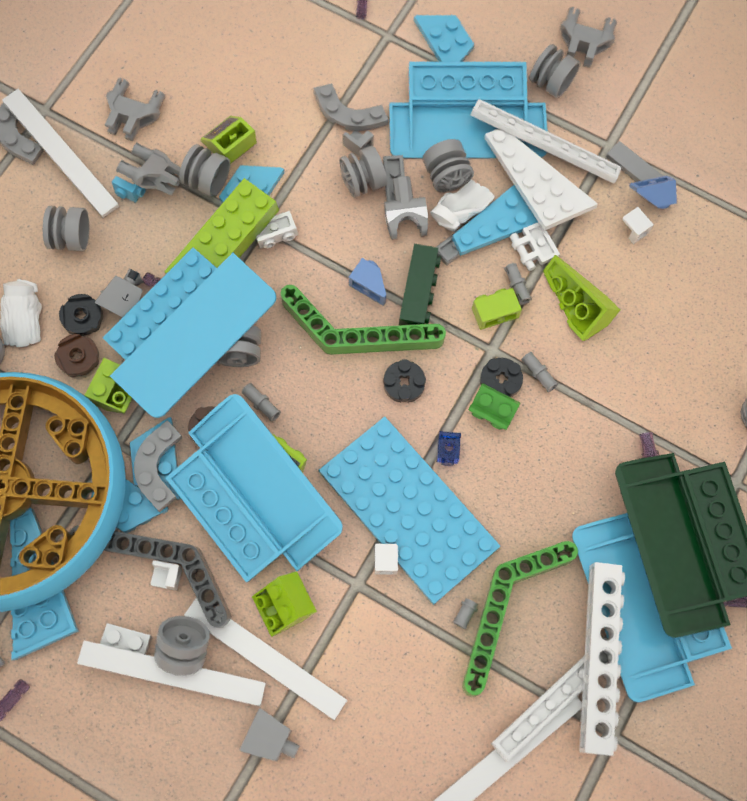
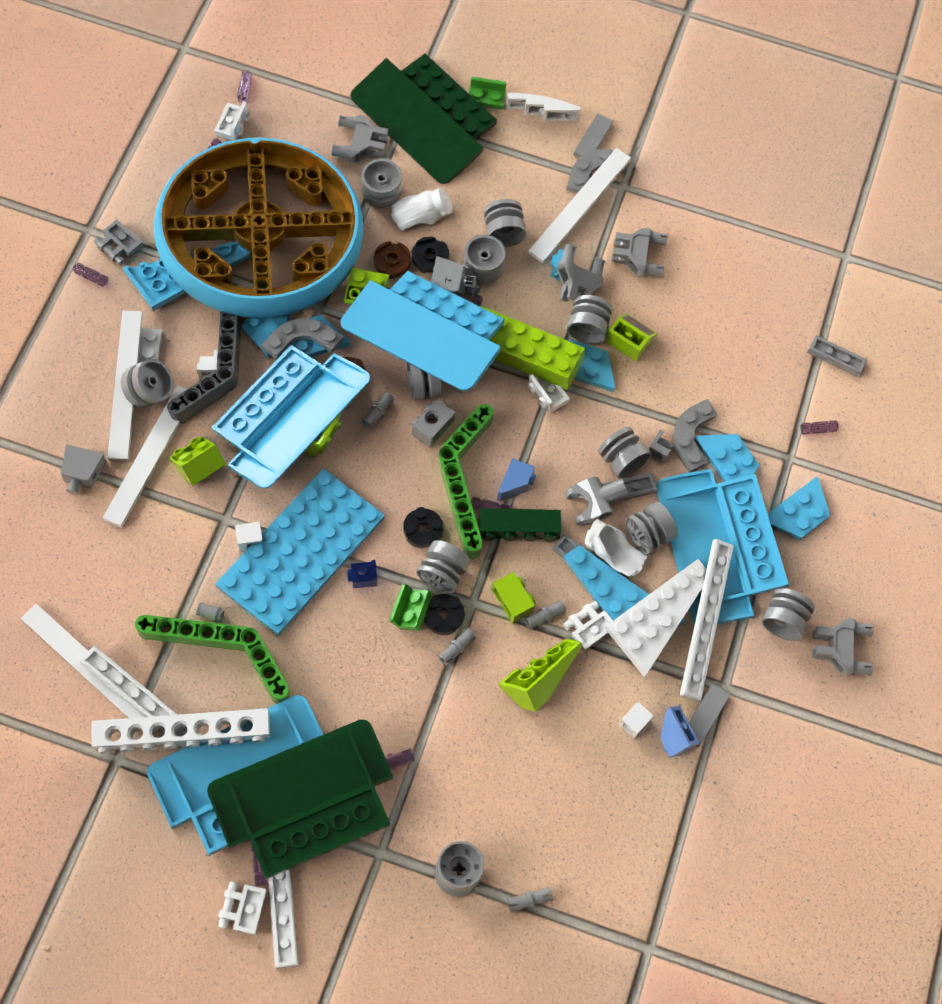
camera: 75 degrees right, 5 degrees down
(103, 258) = (484, 258): none -> light grey wheel
(285, 337) = (428, 432): none -> light grey brick
(380, 85) = (727, 455): none -> medium azure wing
(392, 310) = (477, 503): none -> axle
(458, 366) = (443, 566): none -> light grey wheel

